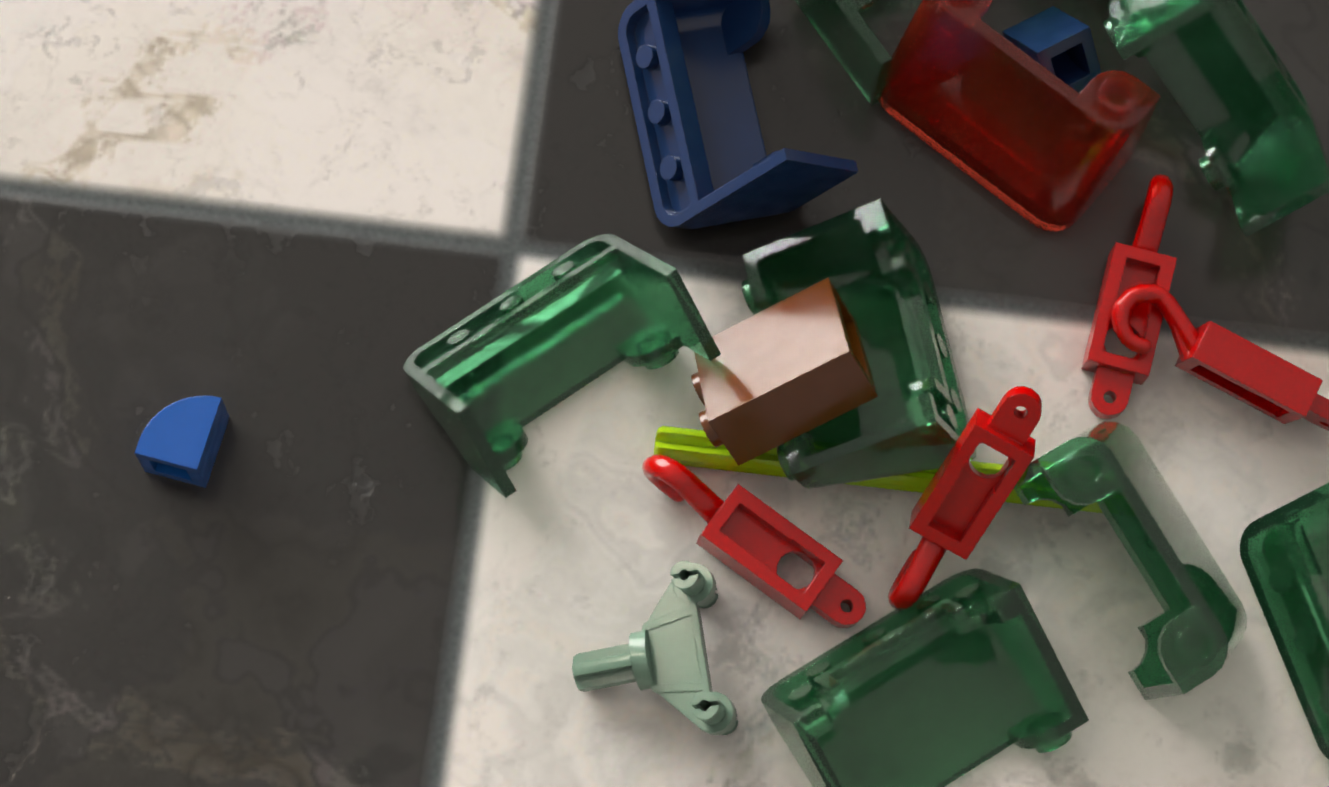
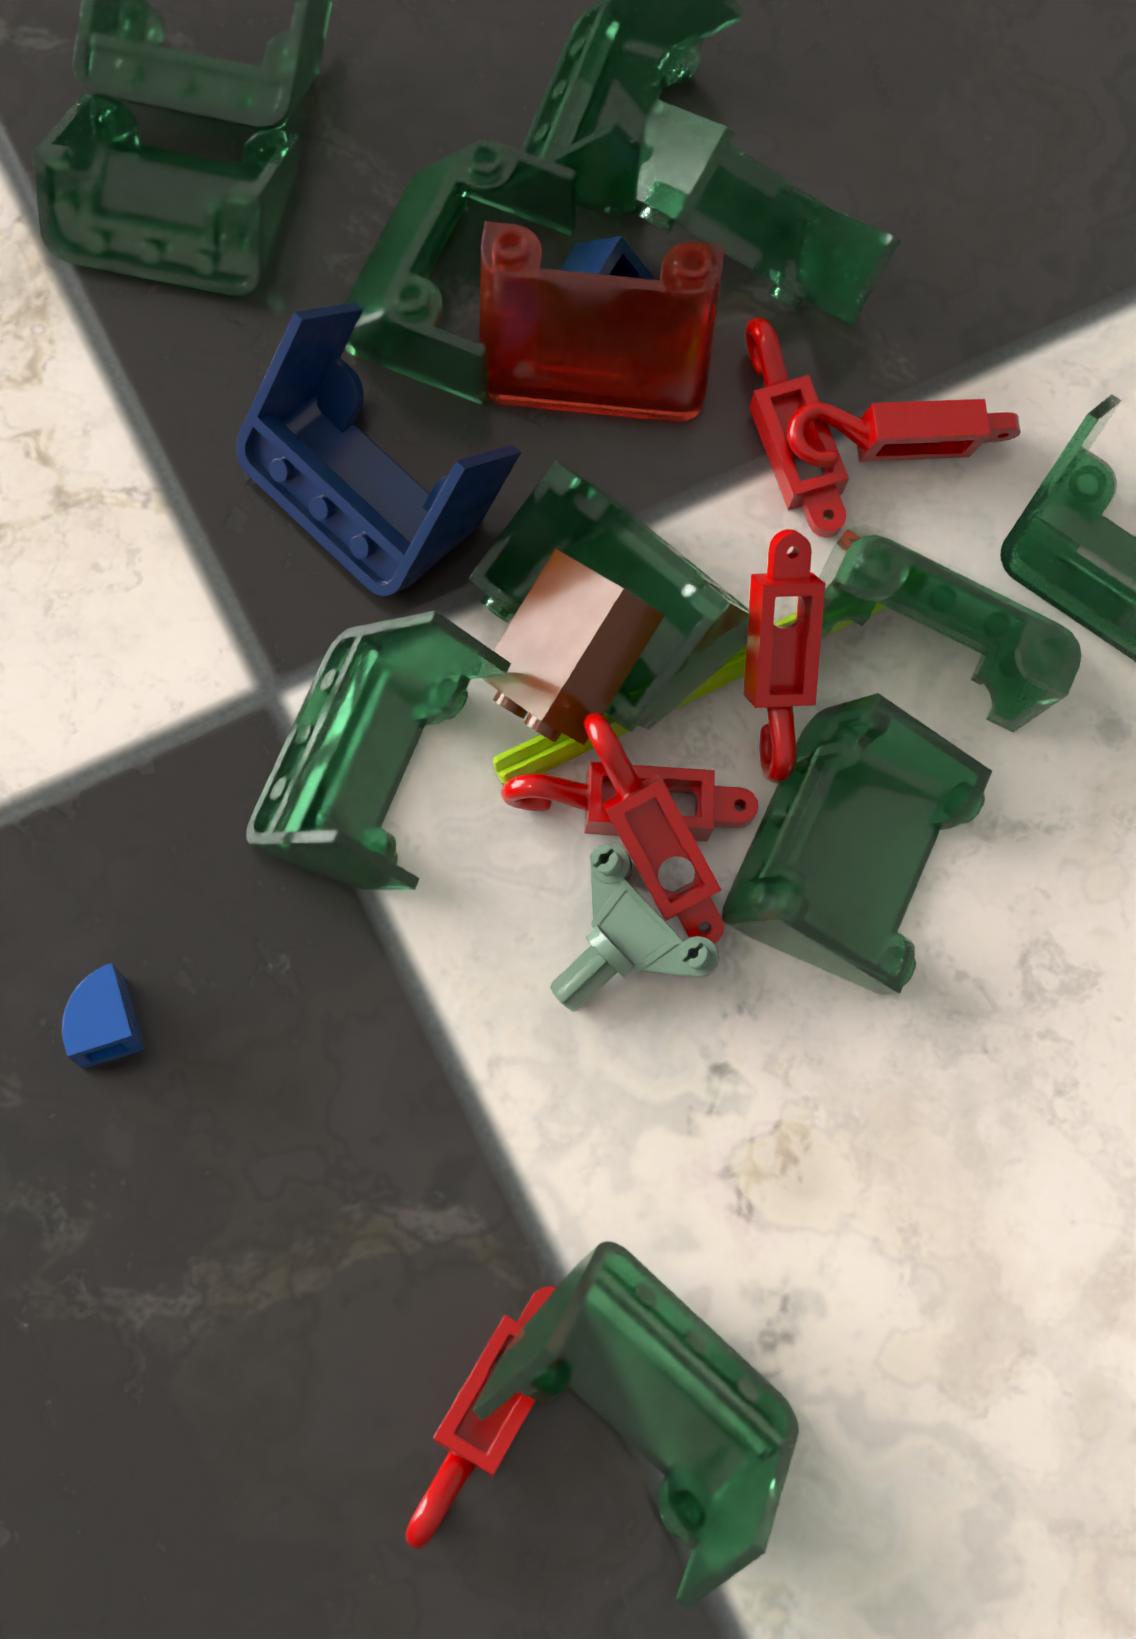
camera: 30 degrees left, 0 degrees up
(749, 579) = (653, 833): none -> red piece

